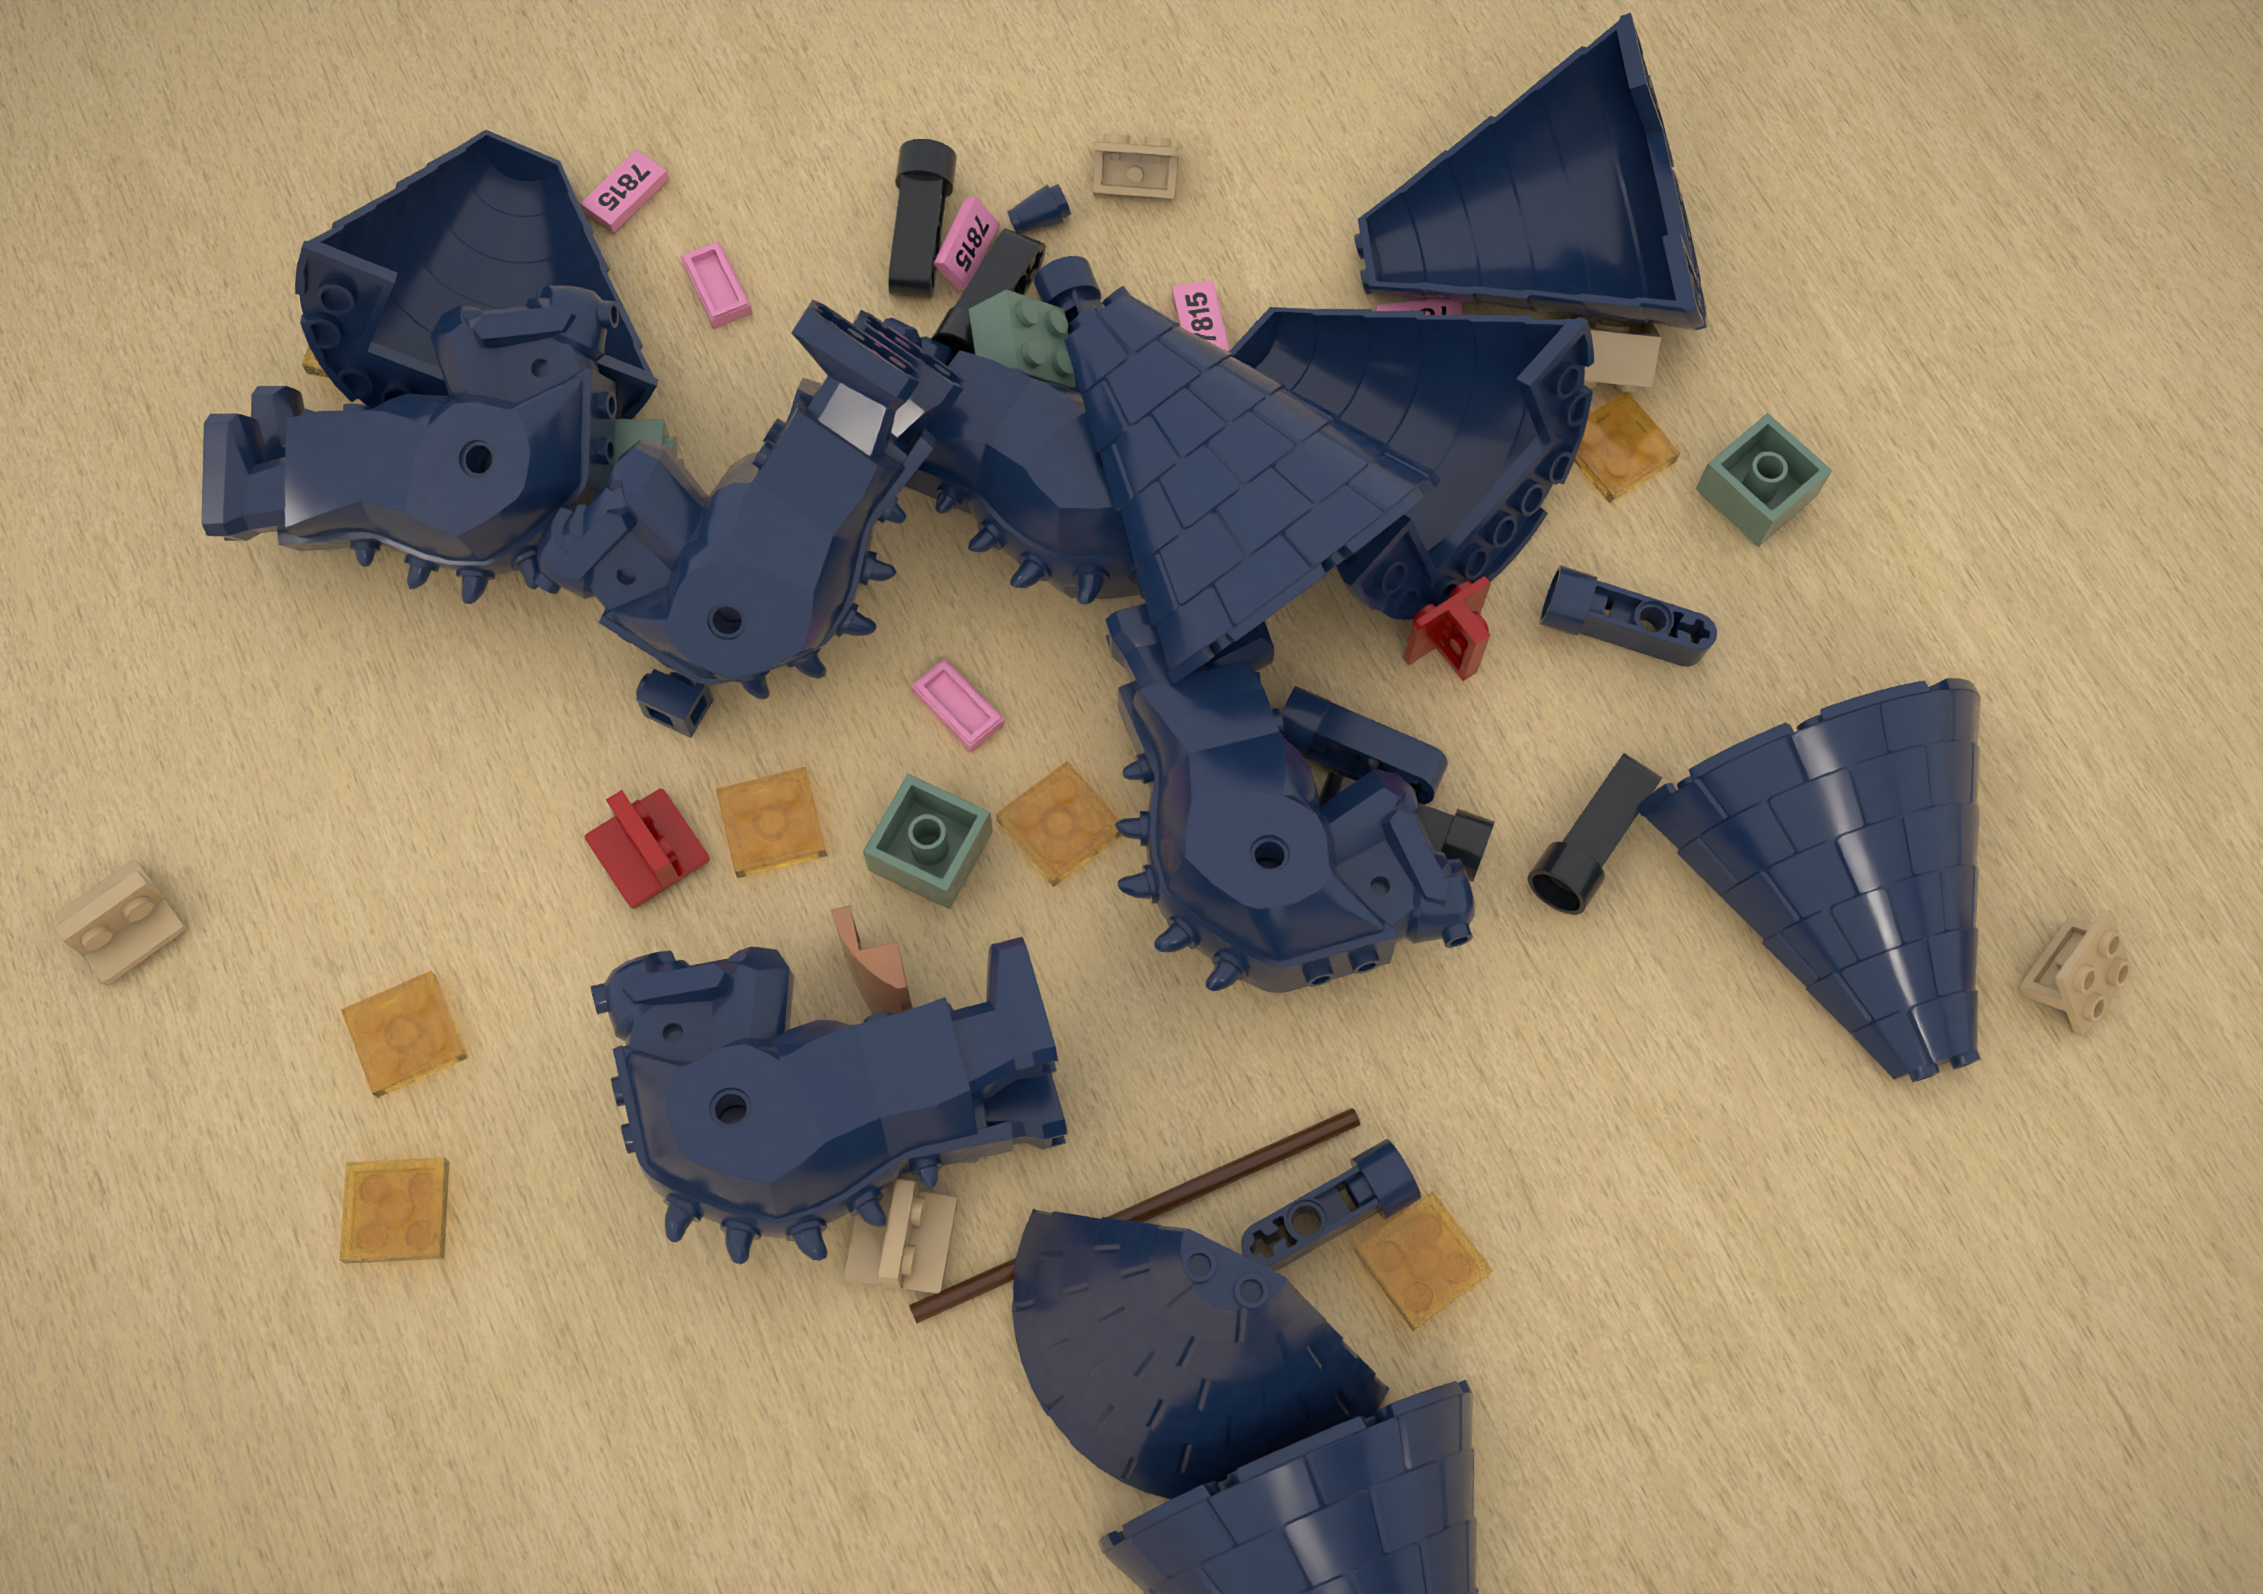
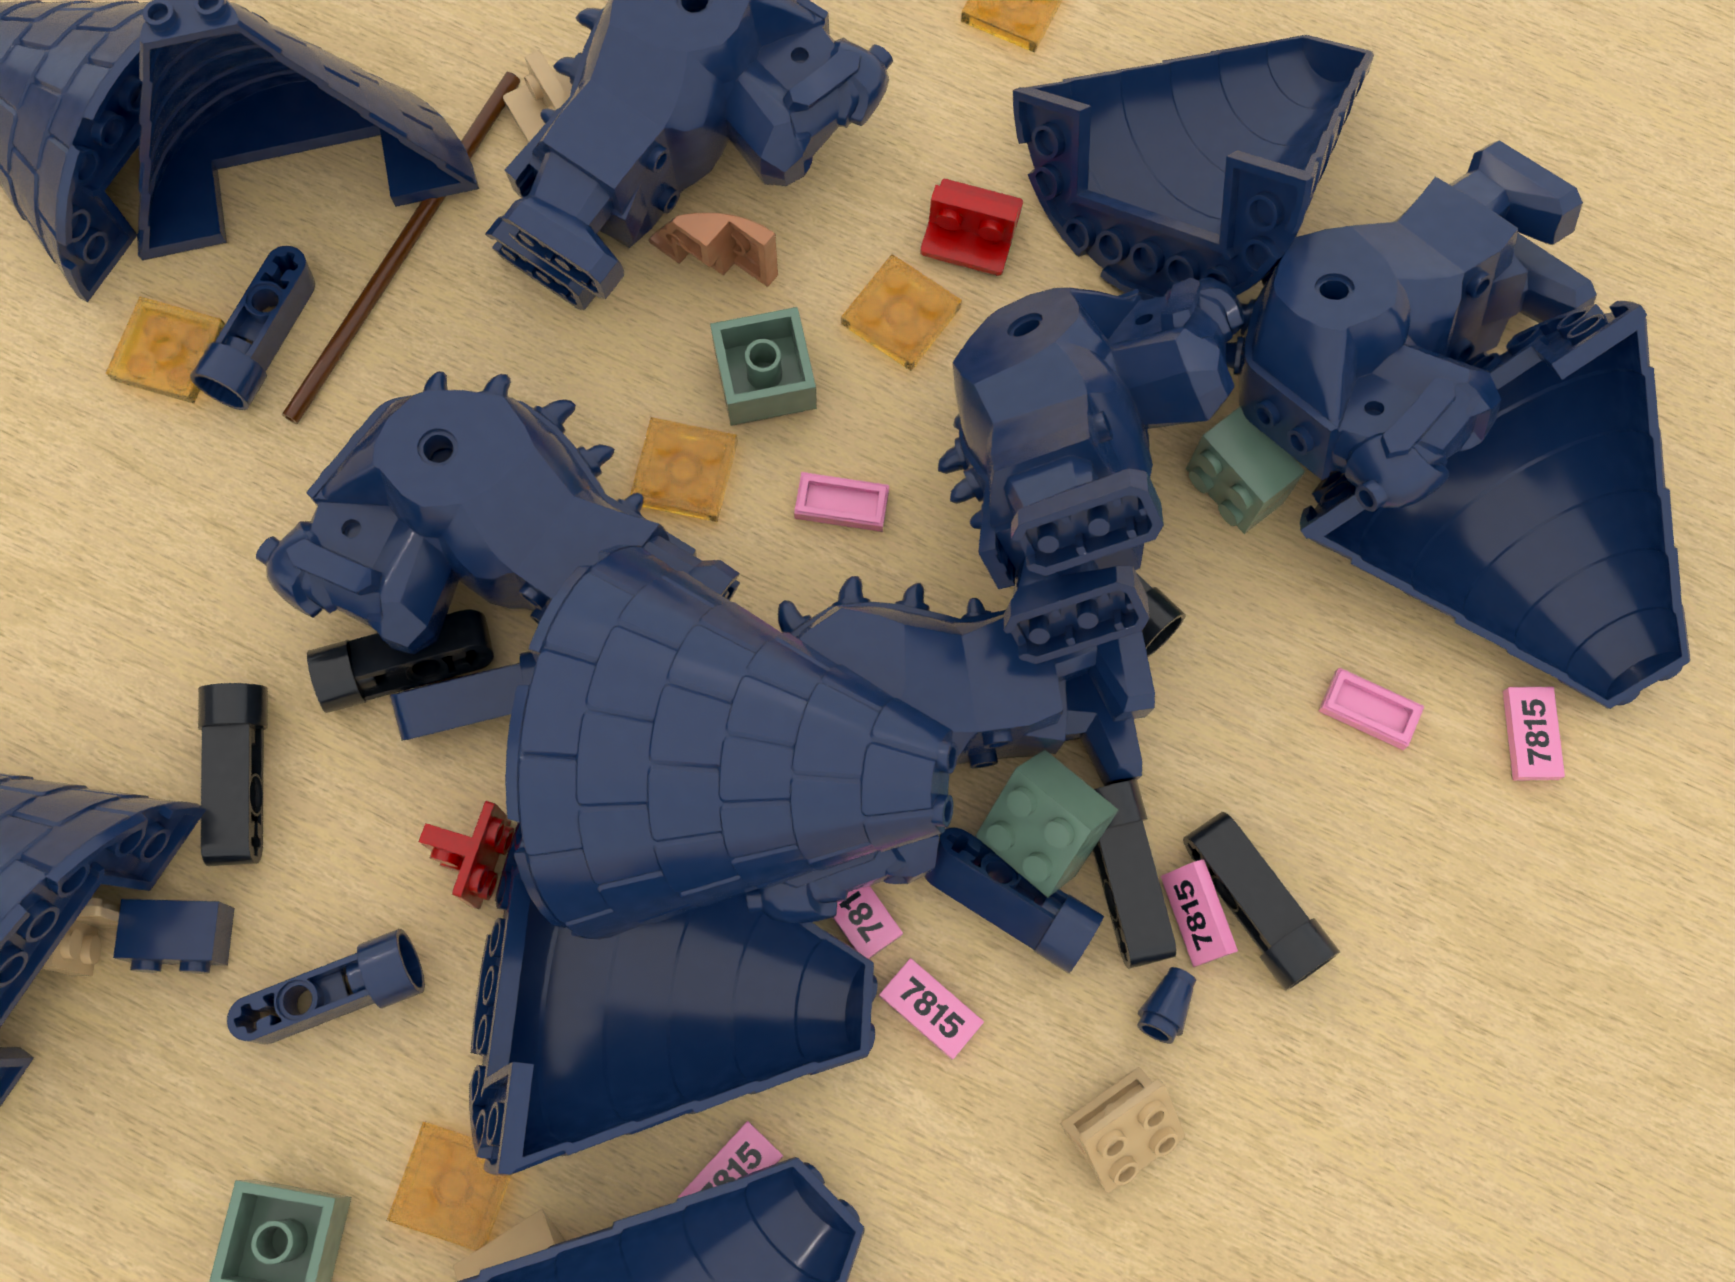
camera: 140 degrees right, 5 degrees up
(412, 710) = (1190, 158): none -> dark blue cone
(1705, 731) = (173, 933): none -> dark blue brick

